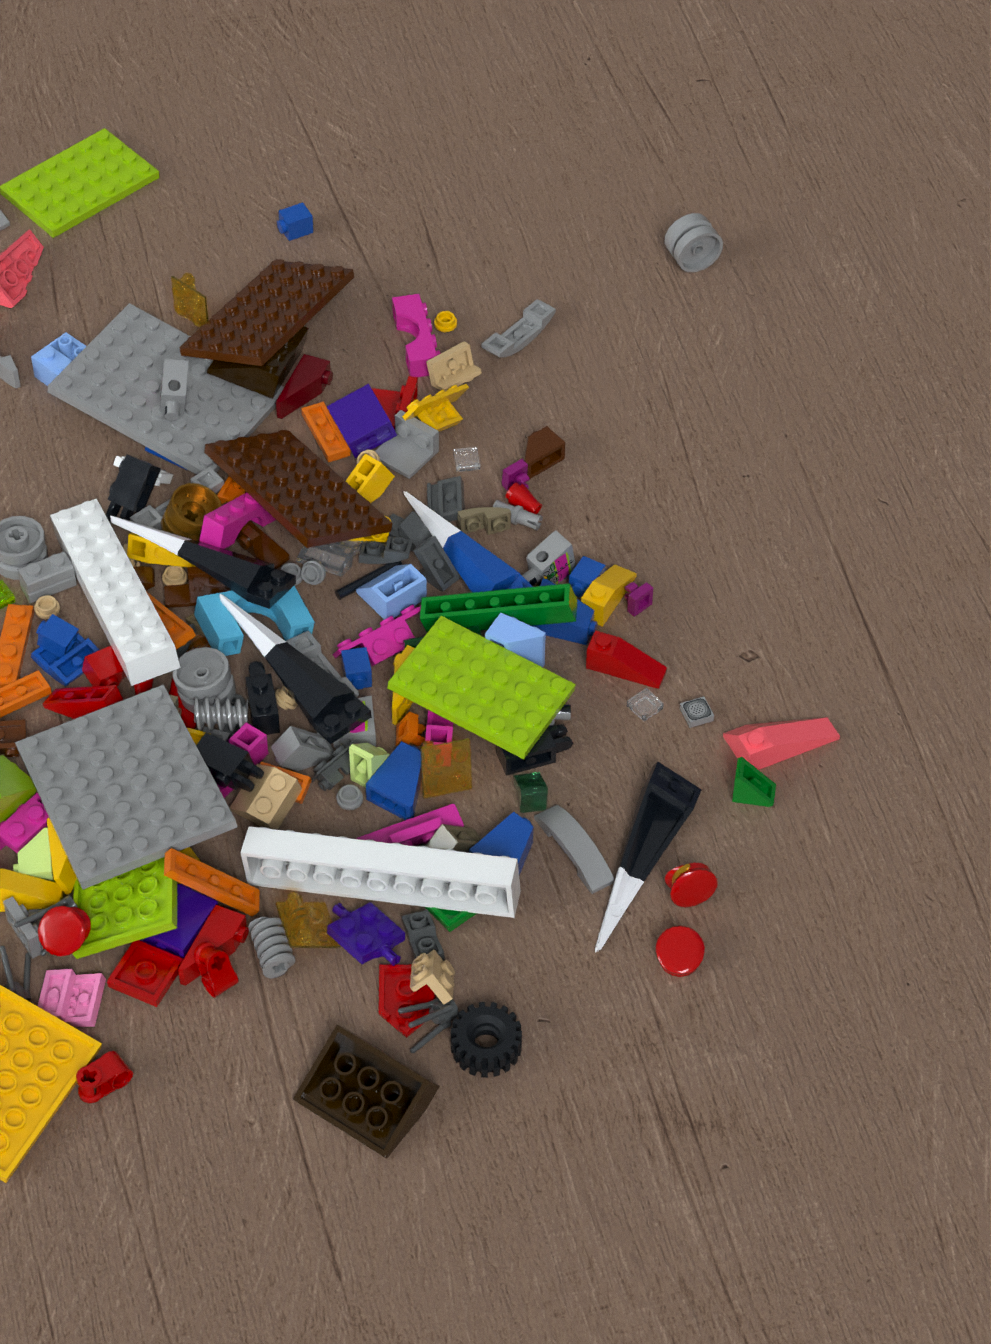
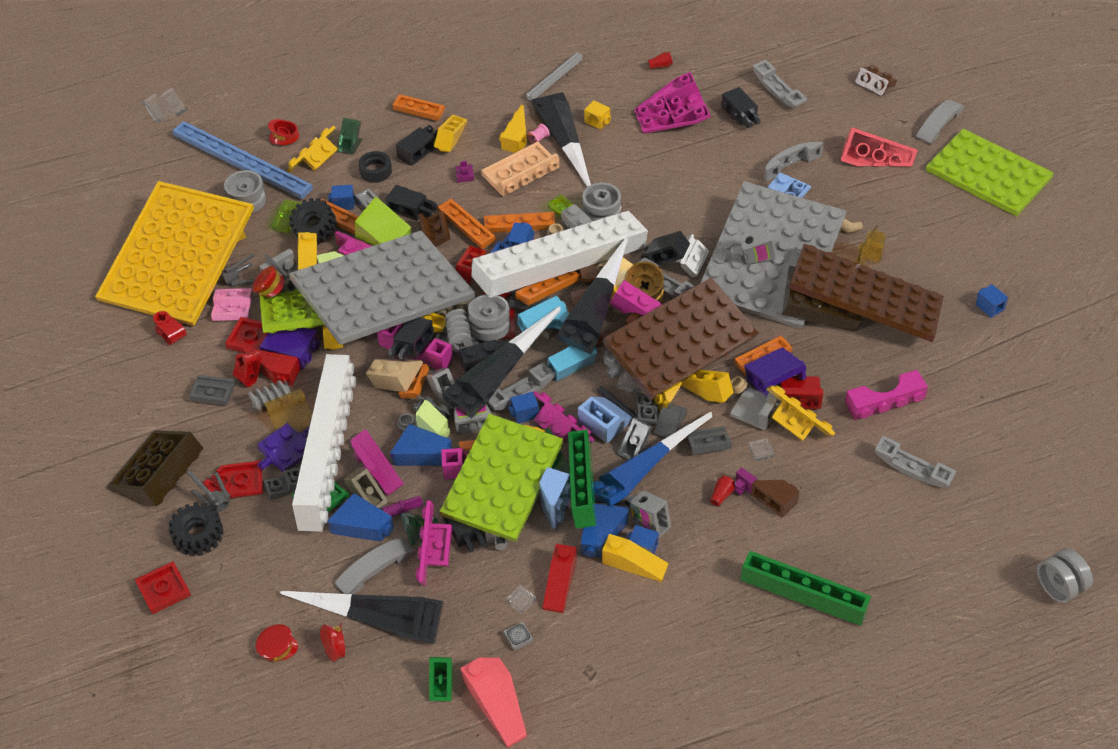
camera: 85 degrees right, 0 degrees up
(211, 882) = (308, 347): orange plate -> none
(238, 1021) = (212, 390): none -> dark grey plate
(305, 384) = (810, 334): dark red slope -> none
(435, 973) = (240, 486): tan bracket -> none
(445, 321) = (914, 411): yellow plate -> none
(445, 767) = (427, 467): clear yellow hinge -> none
(452, 367) = (853, 422): tan bracket -> none
(488, 518) = (691, 465): dark tan slope -> none
(488, 808) = (403, 506): none -> magenta axle
(521, 516) = (705, 489): light grey pin -> none
(565, 771) = (435, 544): none -> dark pink bracket
(574, 1080) = (162, 587): none -> red plate
(638, 597) = (629, 580): magenta tile -> none
(675, 446) = (805, 588): none -> green brick

